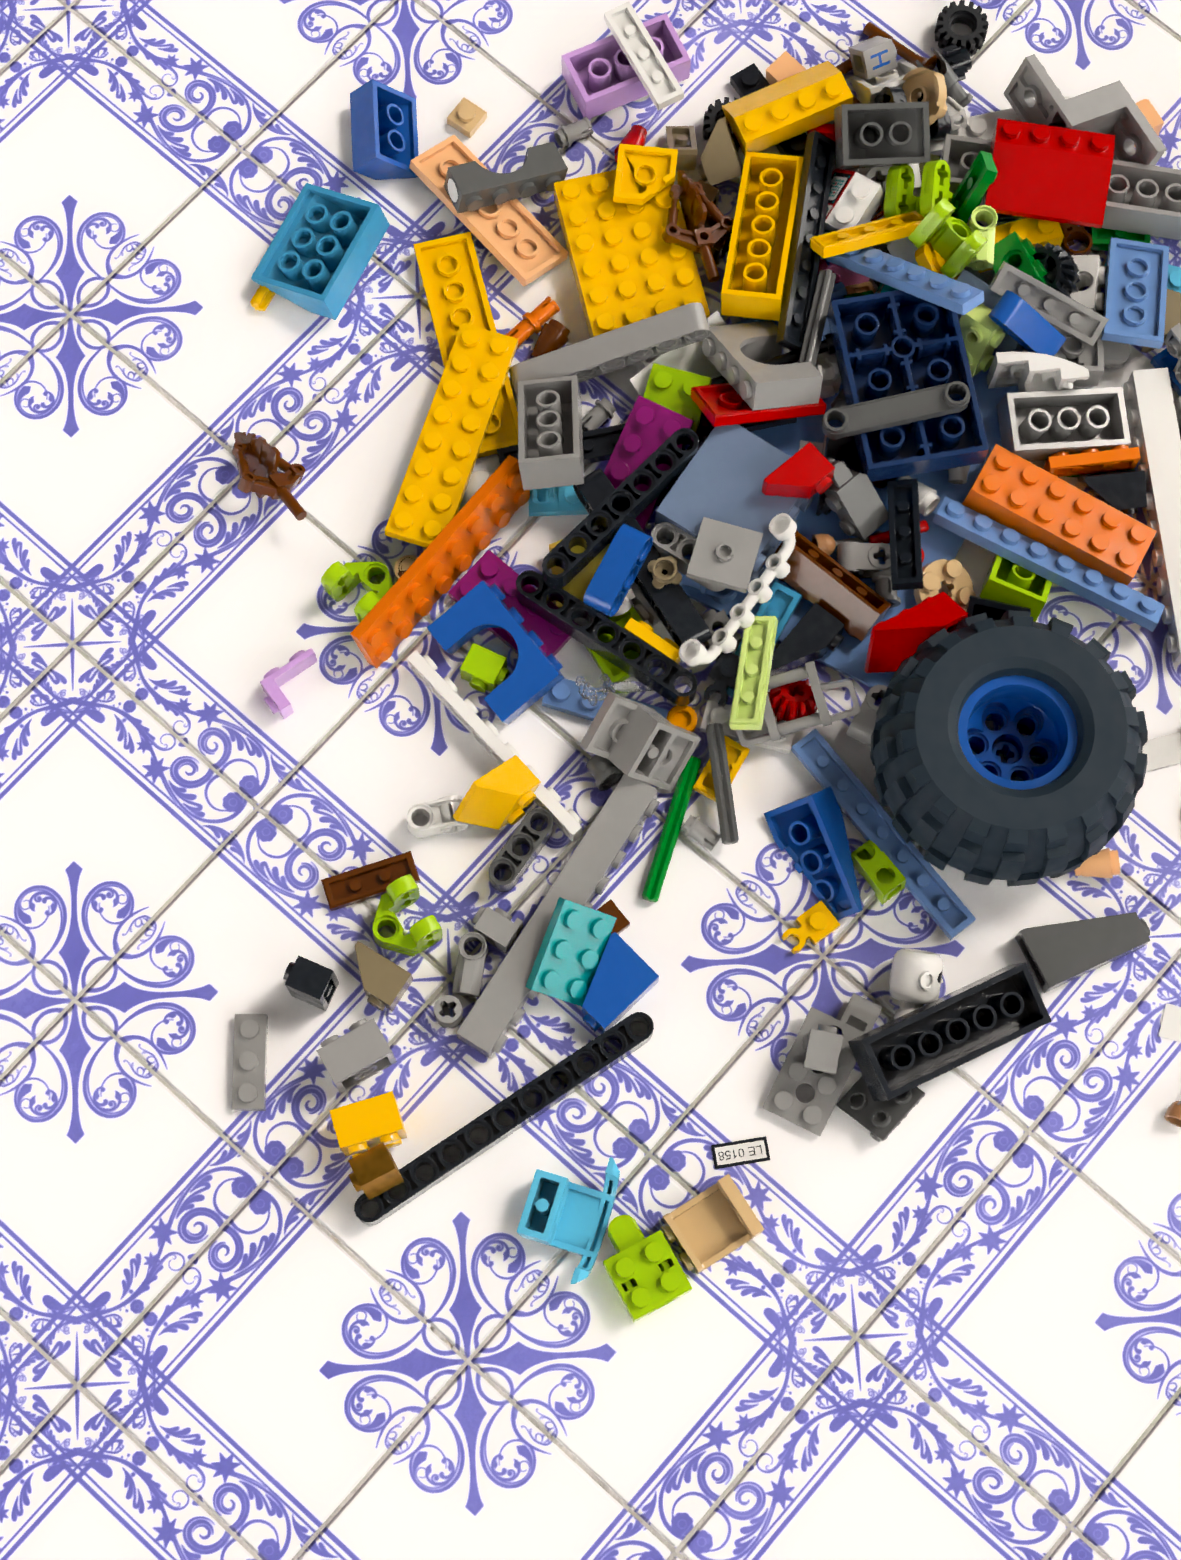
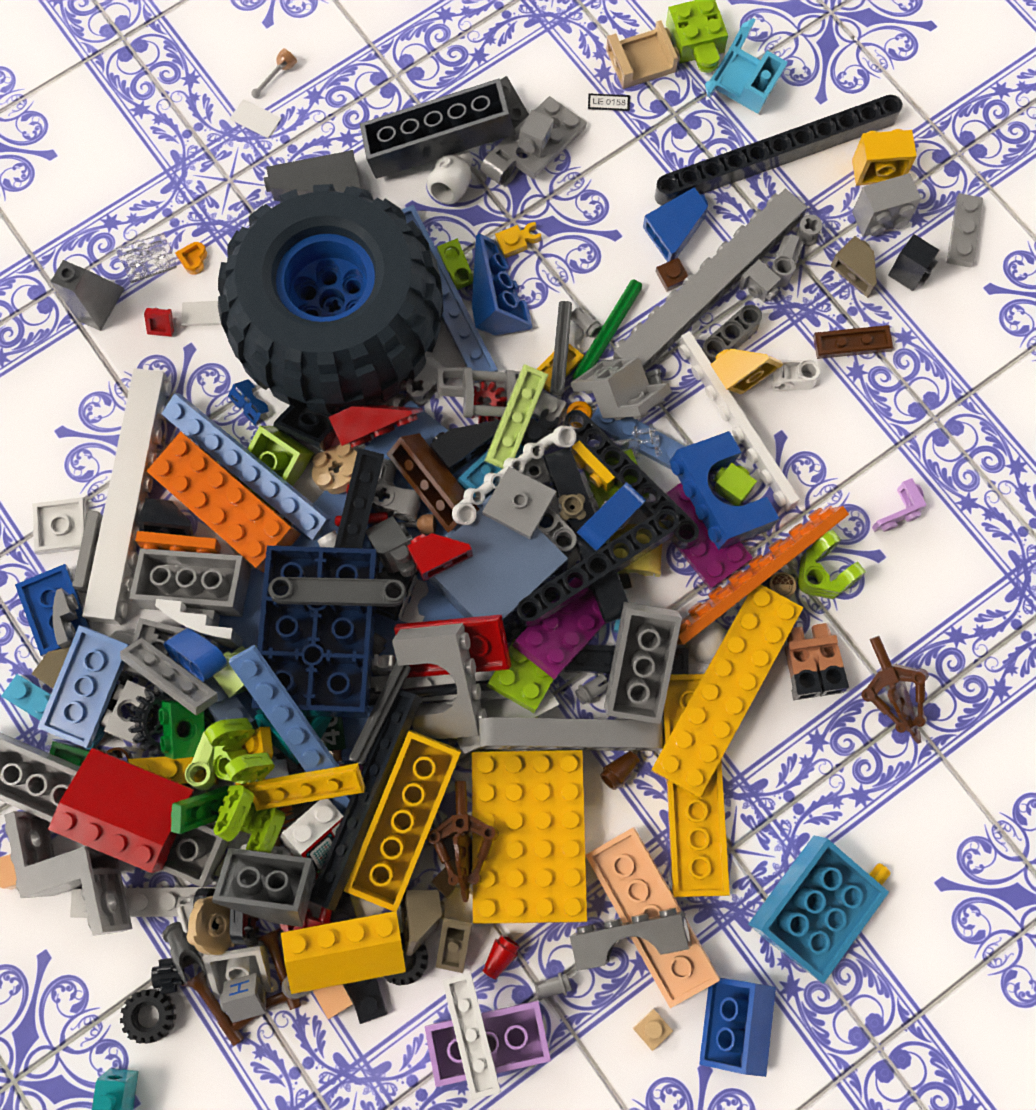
camera: 165 degrees left, 0 degrees up
(361, 500) = (815, 663): none -> hips
(374, 1171) = (885, 117): pearl gold brick -> none
(422, 934) = (837, 312): lime piece -> none
(534, 320) = (632, 793): orange pin -> none
(570, 952) = (708, 244): teal plate -> none
(643, 172) = (501, 903): yellow plate -> none

